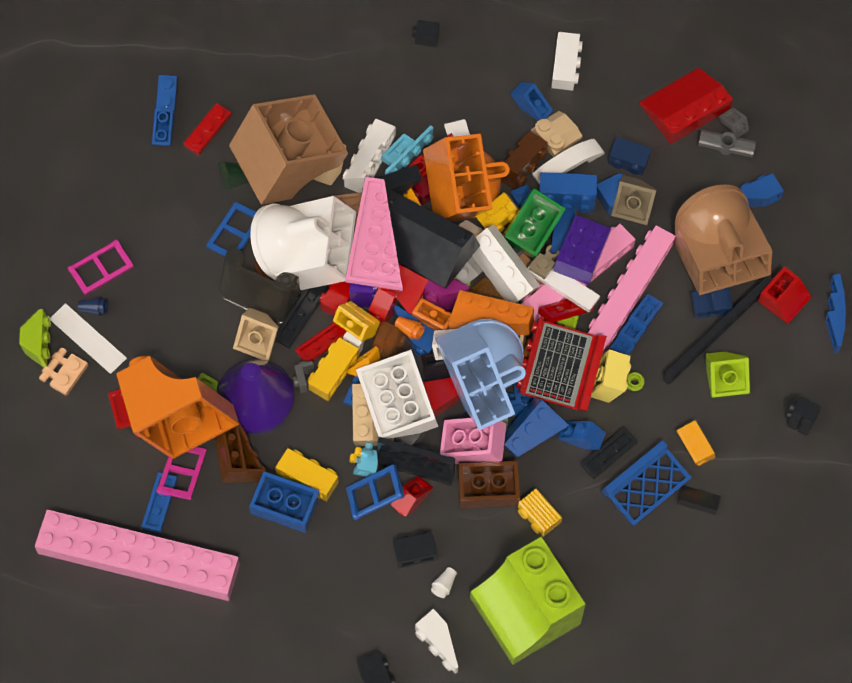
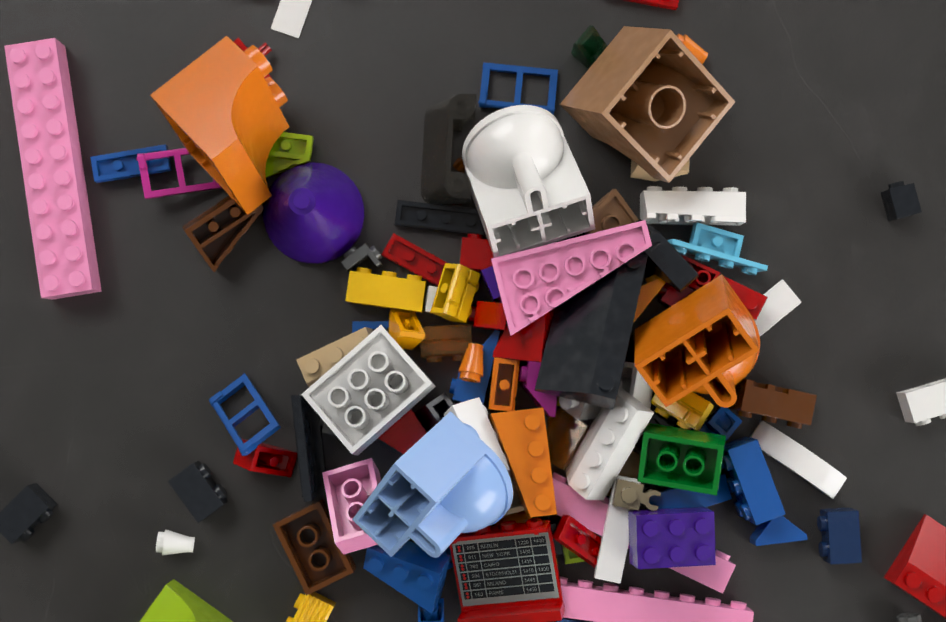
camera: 65 degrees right, 20 degrees up
(256, 334) = (391, 177): tan slope -> none
(284, 502) = (187, 311): blue brick -> none
(307, 472) = (238, 321): yellow brick -> none
(366, 462) = (284, 384): medium azure piece -> none
(436, 634) = (108, 557): white slope -> none
(531, 100) = (863, 377): blue slope -> none
(558, 132) = (833, 427): tan slope -> none
(634, 200) = (780, 568): dark tan slope -> none

